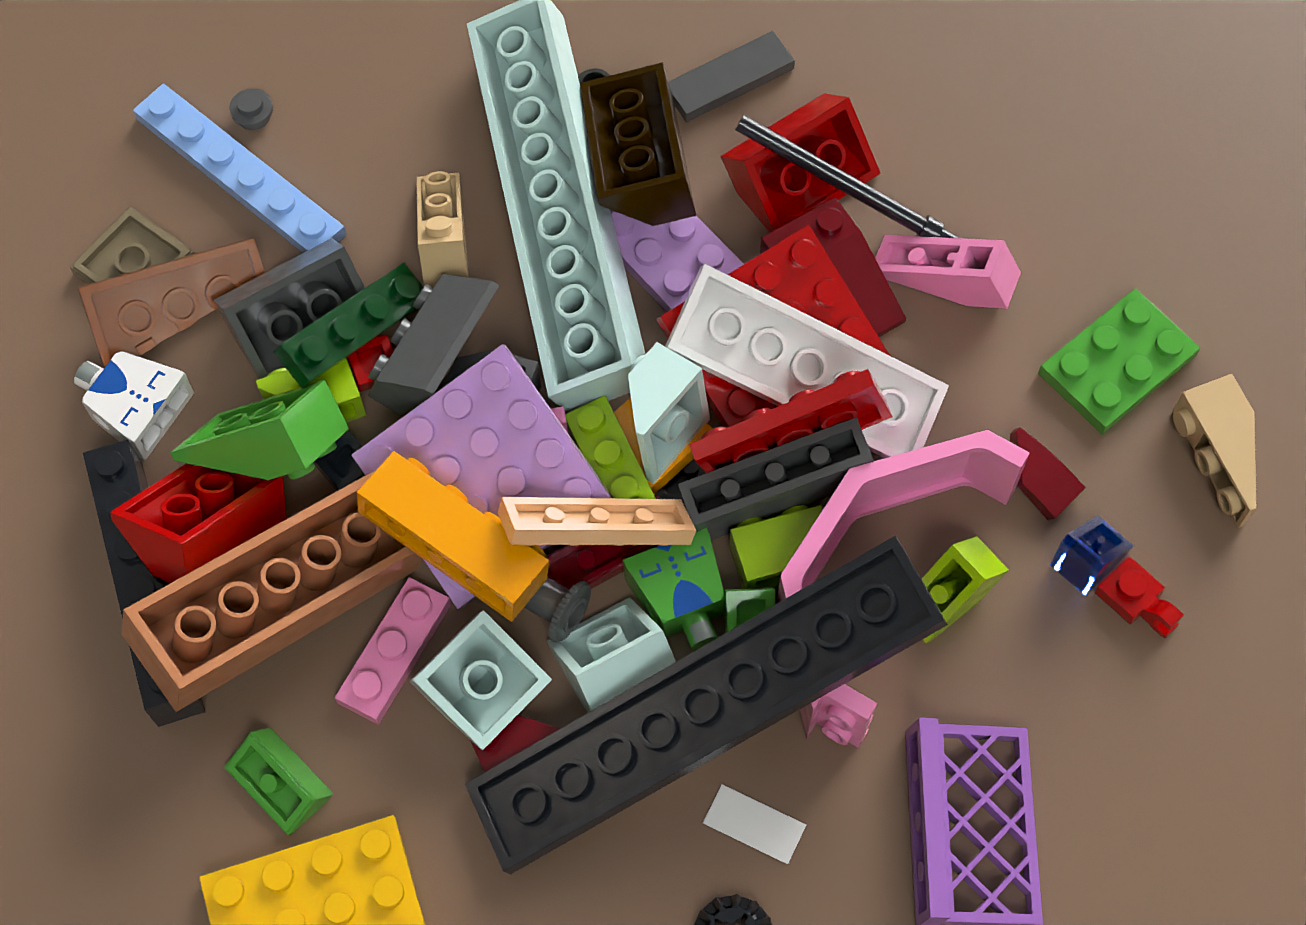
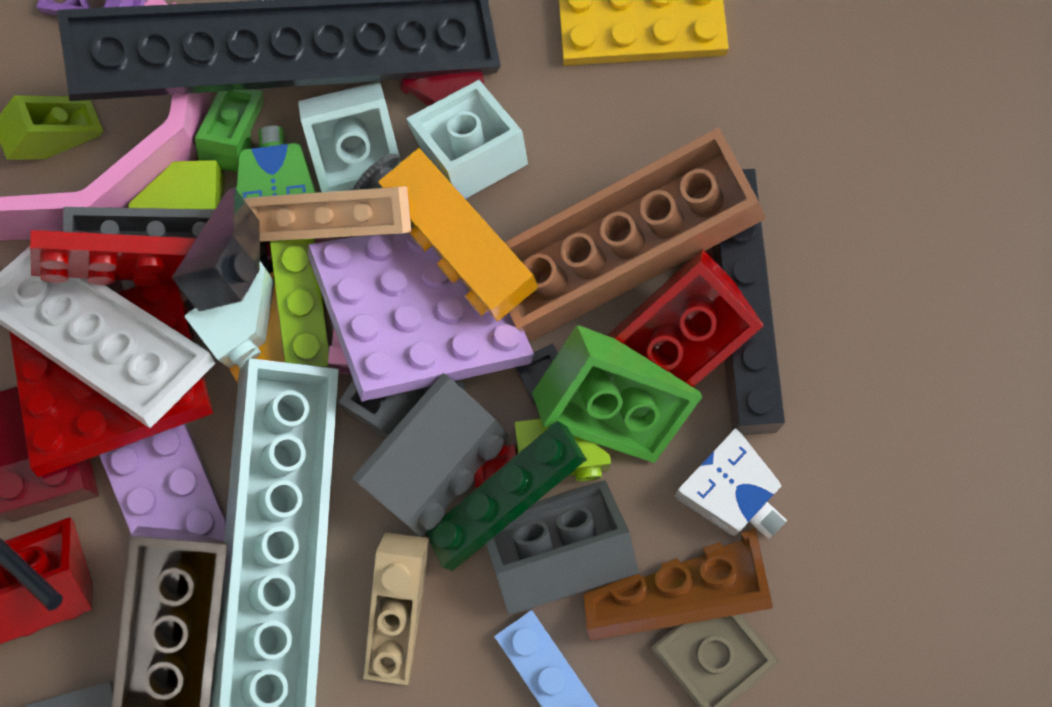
camera: 165 degrees left, 10 degrees up
(278, 779) = (652, 115): bright green slope -> none
(393, 651) = (540, 191): bright pink plate -> none
(677, 430) = (223, 256): none -> black slope

